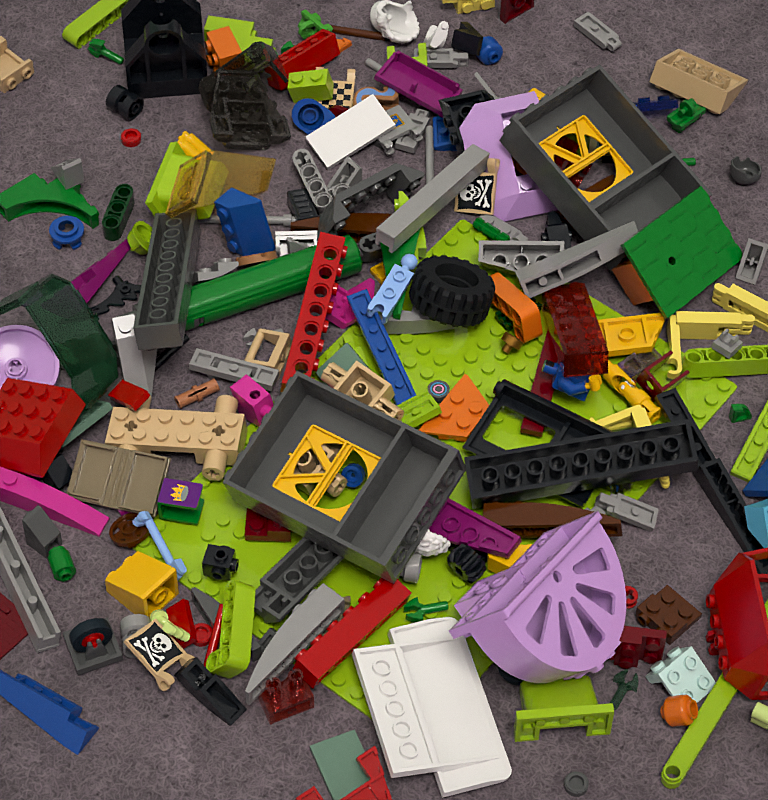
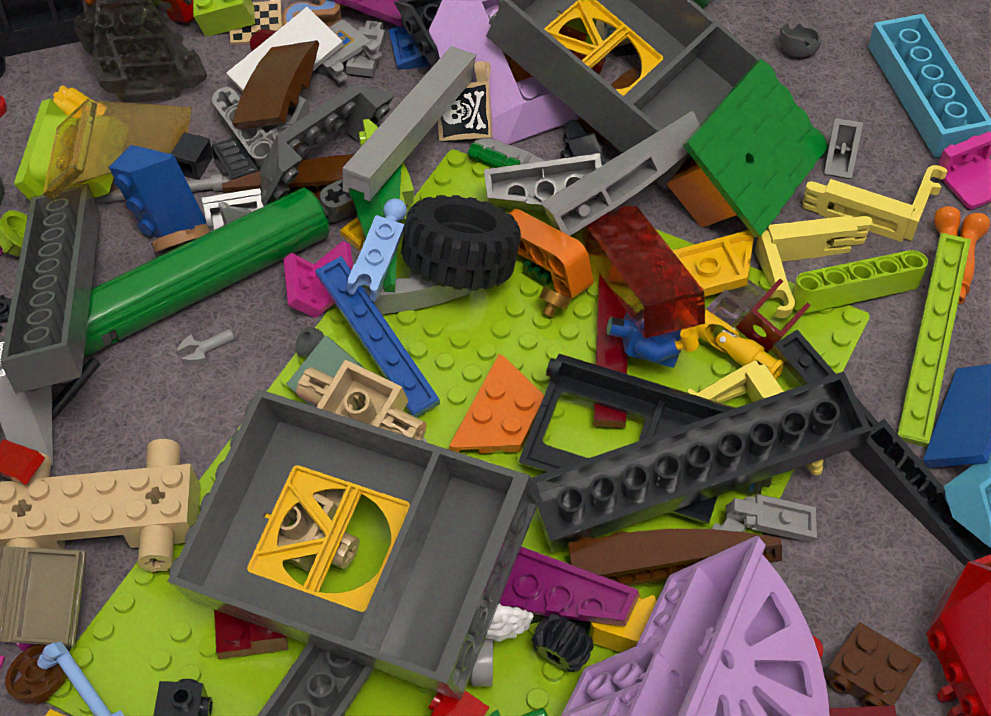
camera: 10 degrees left, 0 degrees up
(180, 501) = (109, 615): piece -> none
(195, 393) = (102, 452): nougat pin -> none
(219, 269) = (129, 259): light grey slope -> none
(232, 369) = (168, 398): light grey hinge -> none
(252, 399) = (204, 452): dark pink torso -> none
(272, 196) = (193, 155): none -> black brick
(280, 353) = (231, 369): tan tile -> none
(310, 115) = (228, 42): blue piece -> none
(327, 246) = (276, 205): red brick -> none
(334, 344) = (308, 340): none -> dark grey tile
(340, 153) = (276, 85): none -> reddish brown slope
(354, 474) = (367, 528): blue tile -> none
(419, 409) = (445, 415): lime plate -> none
(429, 147) = (392, 71): light grey bar -> none
(438, 390) = (466, 384): dark grey tile -> none
(727, 344) = (849, 259): light grey tile -> none
(739, 413) = (885, 351): green tile -> none

